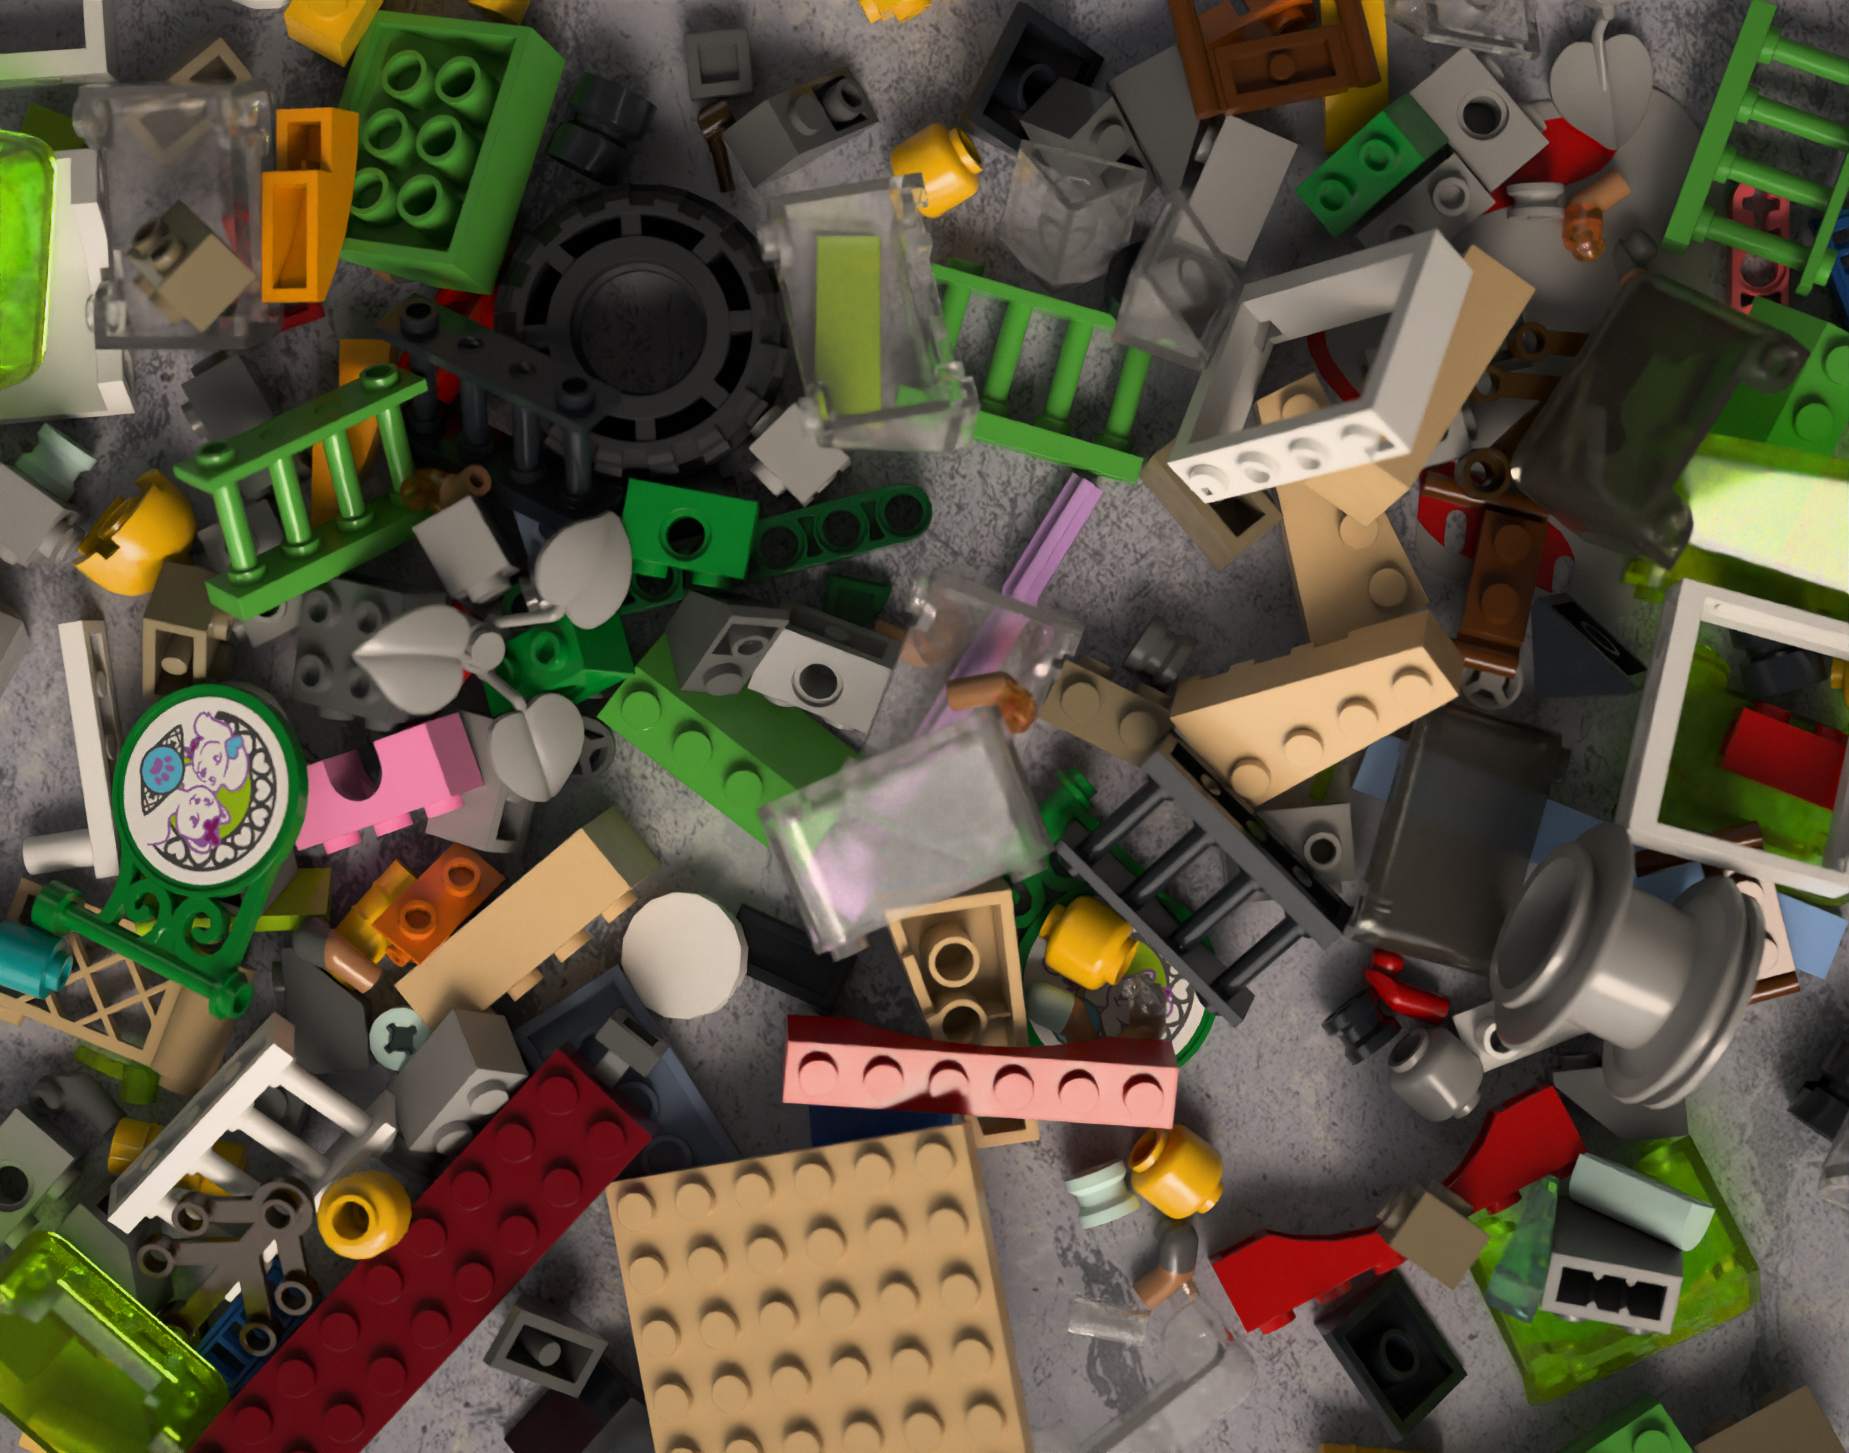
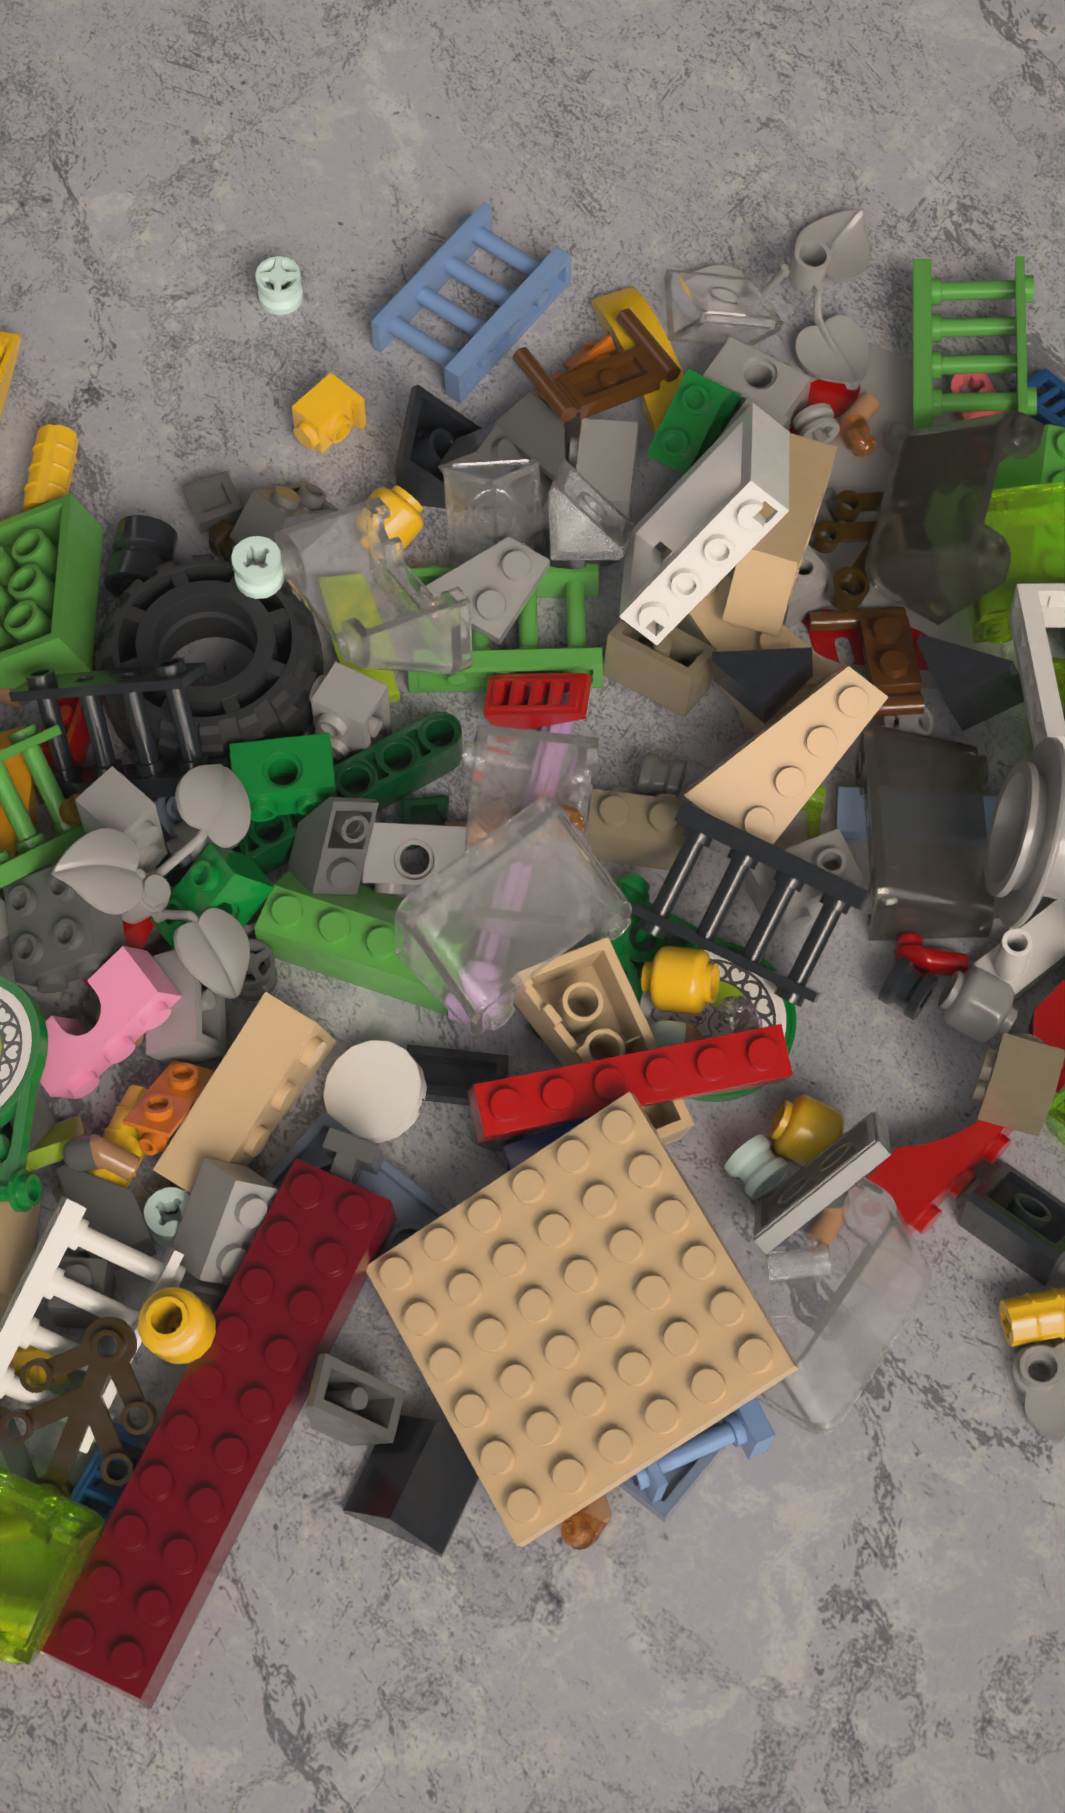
camera: 20 degrees left, 25 degrees down
(735, 265) = (253, 579): none -> light aqua wheel
(1005, 480) = (508, 693): none -> red slope
(1029, 330) = (497, 585): none -> light grey wing
(1161, 1264) = (821, 1181): none -> light grey tile
(1320, 592) = (763, 678): none -> black slope

